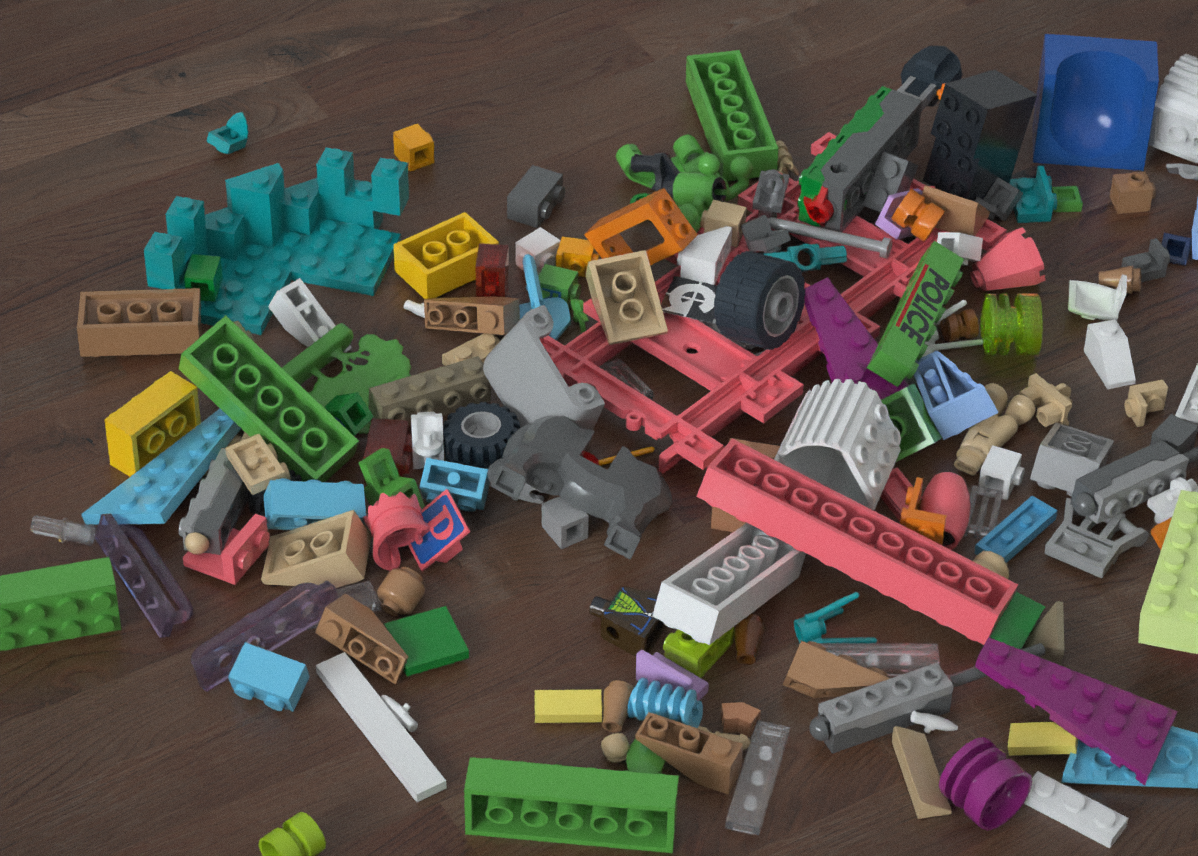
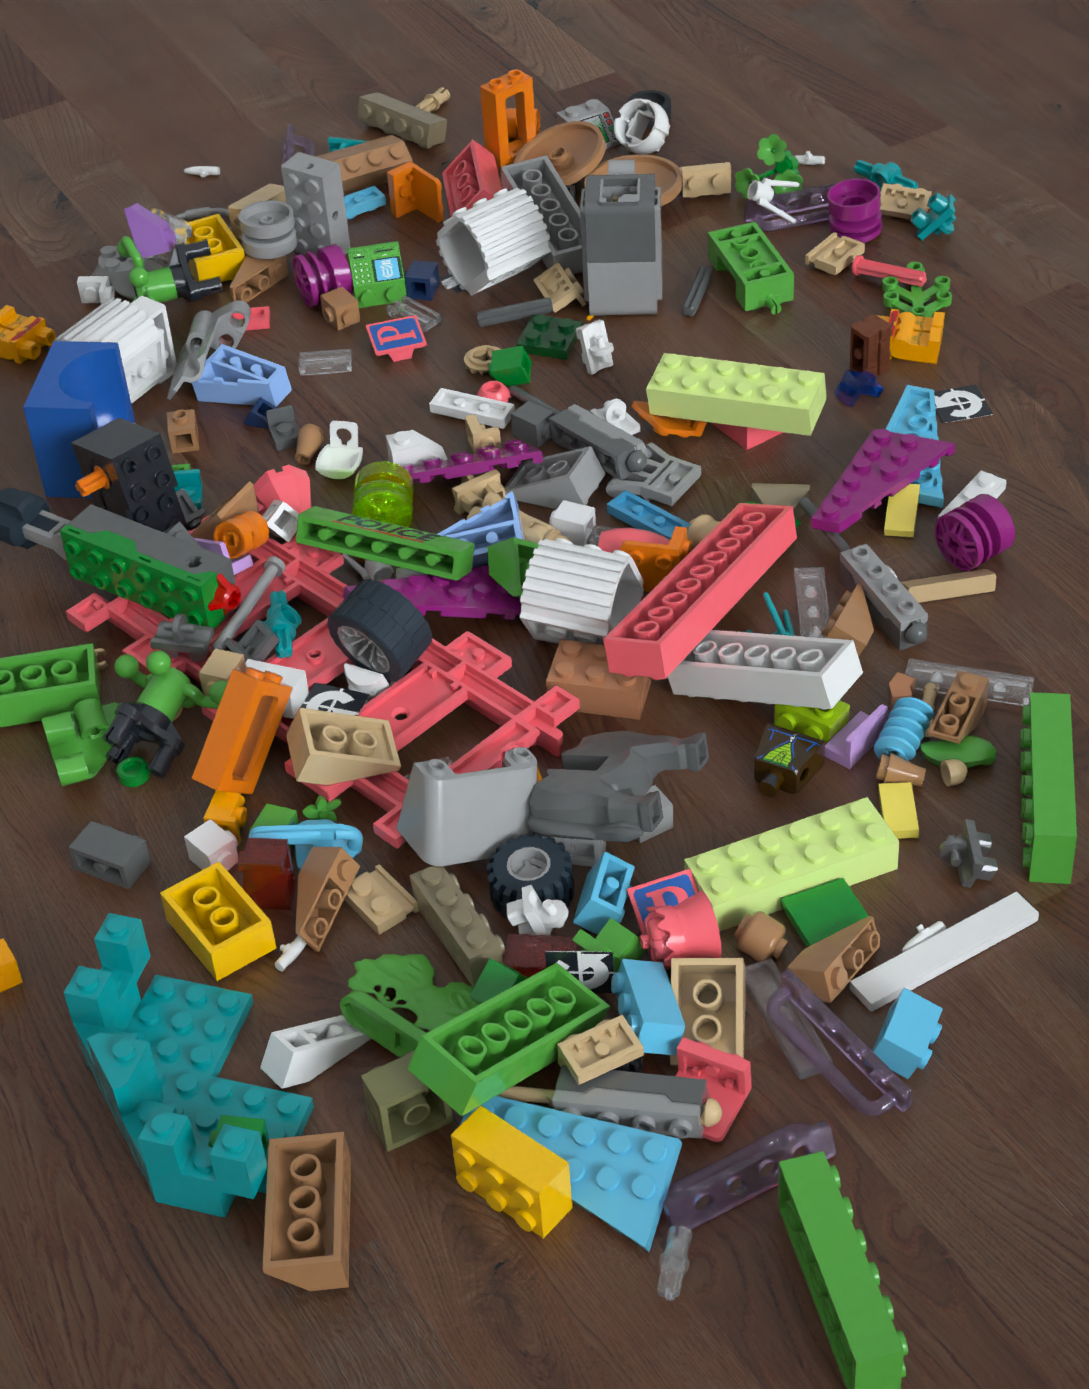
camera: 85 degrees left, 0 degrees up
(359, 457) = (590, 968): none -> sticker
(490, 616) = (810, 852): none -> yellowish green brick
(497, 742) = (968, 854): none -> flat silver hips
(1088, 392) = (468, 464): none -> magenta wing

